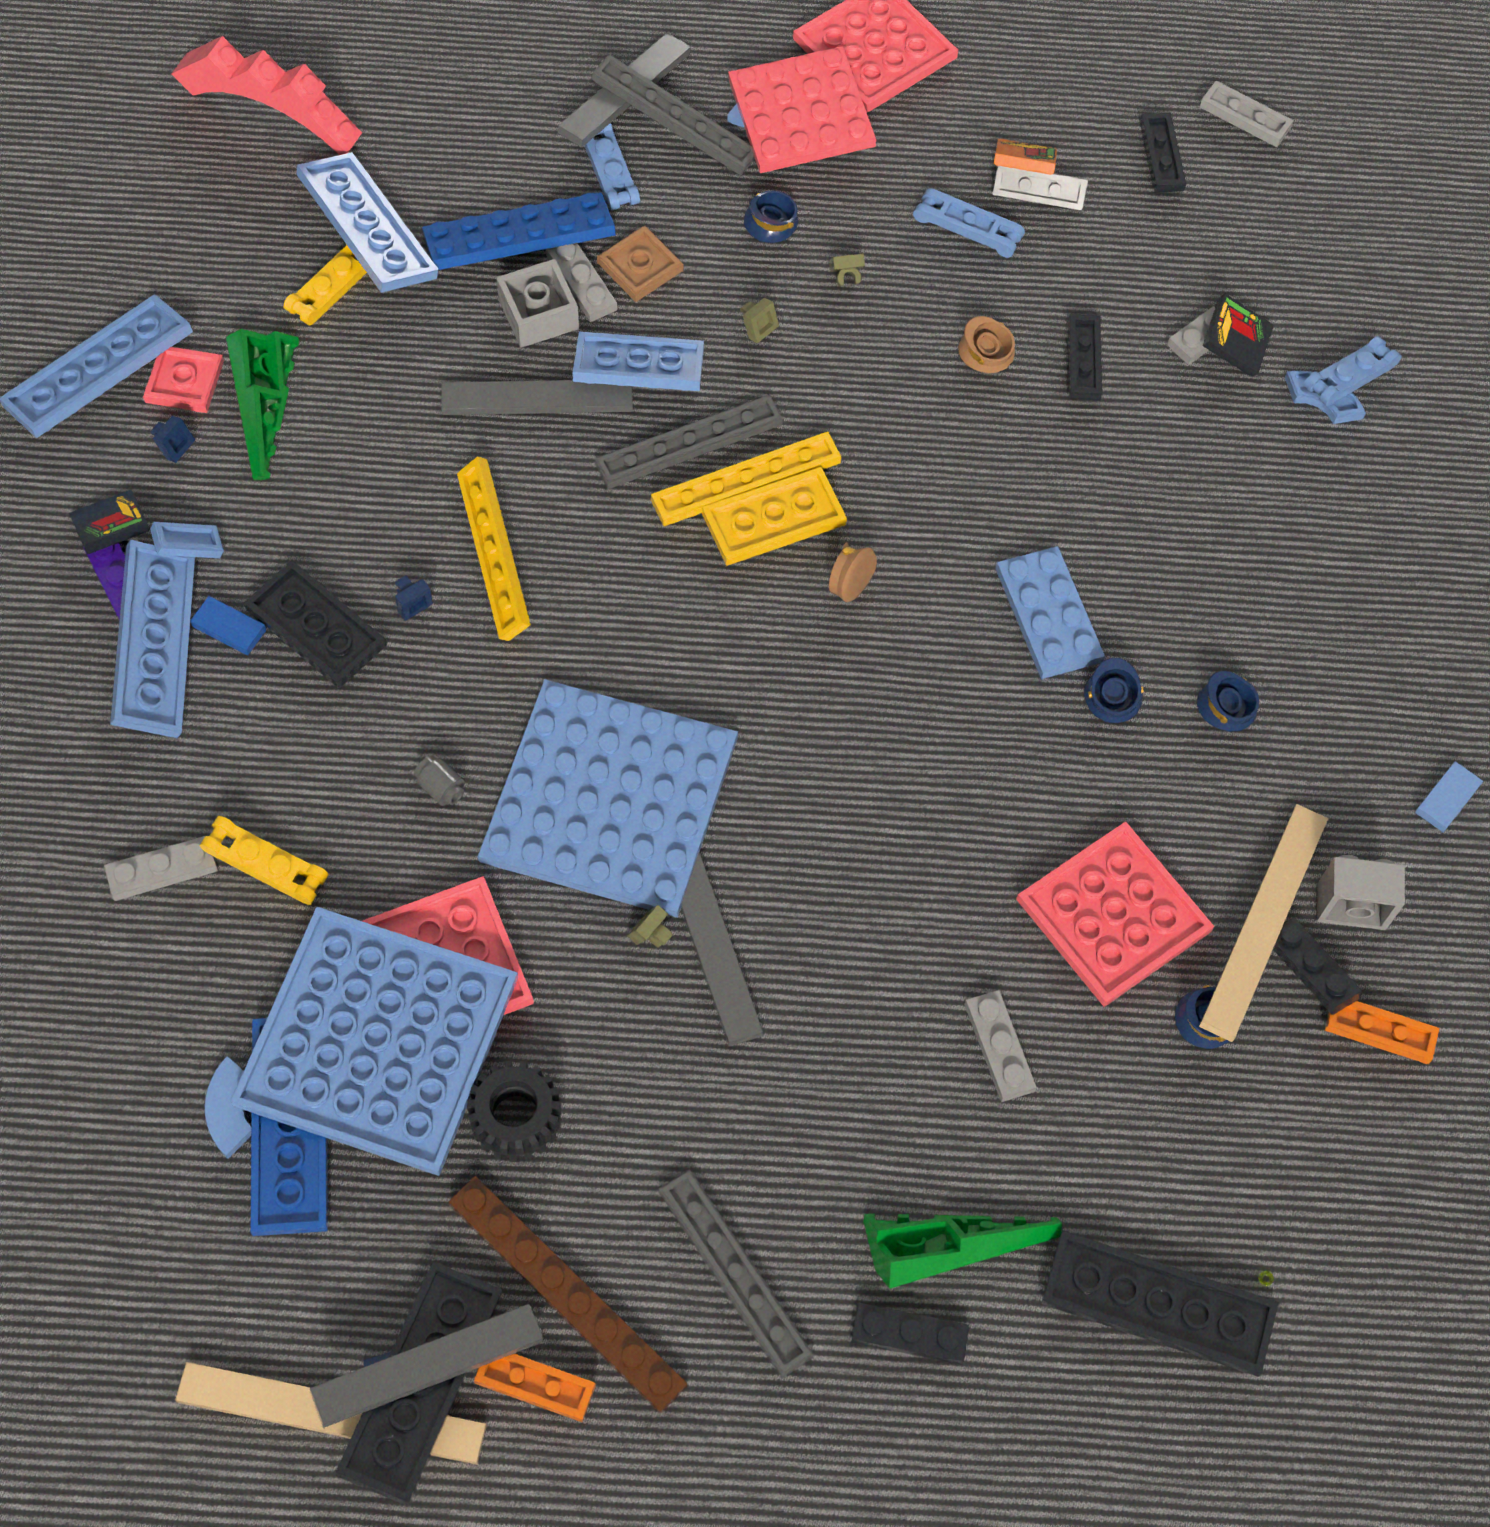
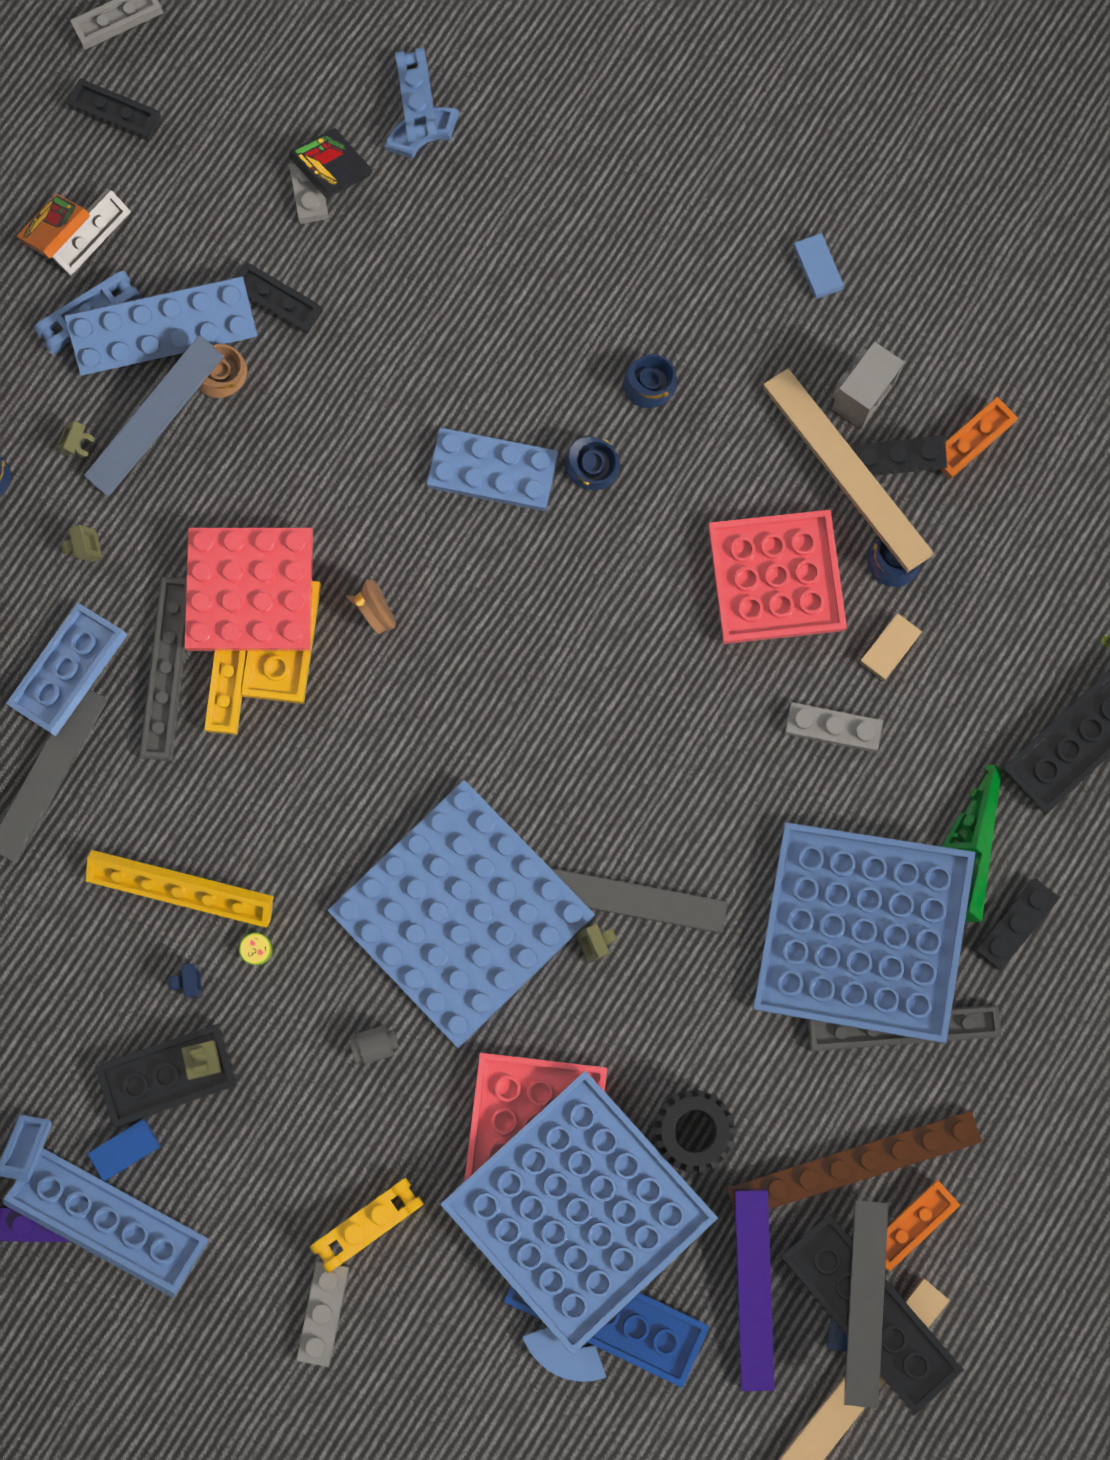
camera: 55 degrees left, 15 degrees up
(344, 640) = (201, 1060): none -> olive tile
(384, 1253) = (754, 1290): none -> dark purple tile
(474, 640) = (255, 949): none -> light yellow tile
(802, 464) = (249, 589): none -> coral plate
(809, 1175) = (865, 932): none -> medium blue plate
(910, 312) = (154, 415): none -> sand blue tile
(996, 280) = (160, 325): none -> medium blue plate
(1116, 1059) = (890, 647): none -> tan tile

